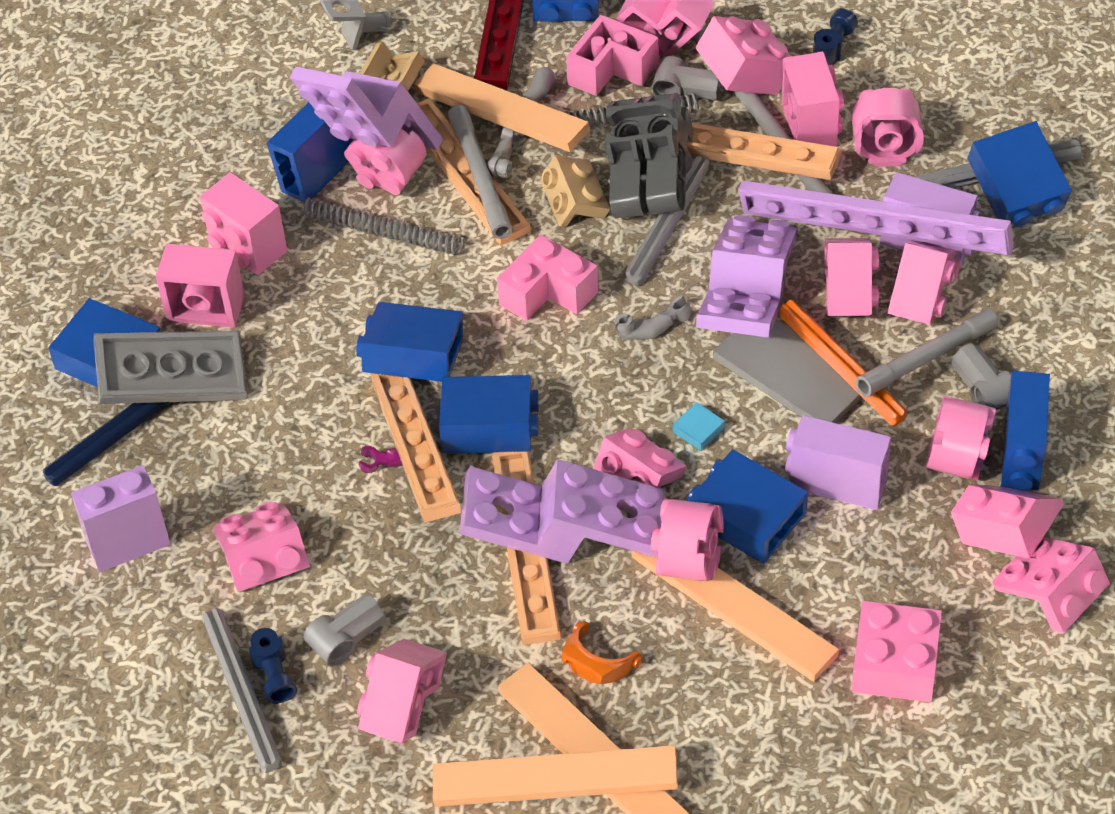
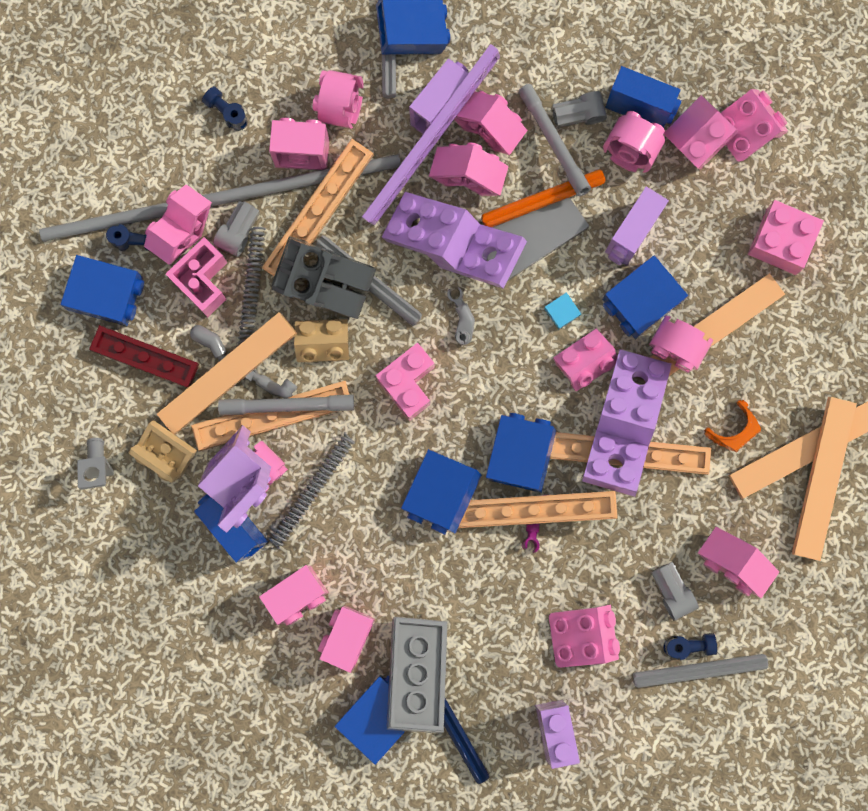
camera: 80 degrees left, 30 degrees up
(743, 54) = (236, 178): bright pink brick -> none

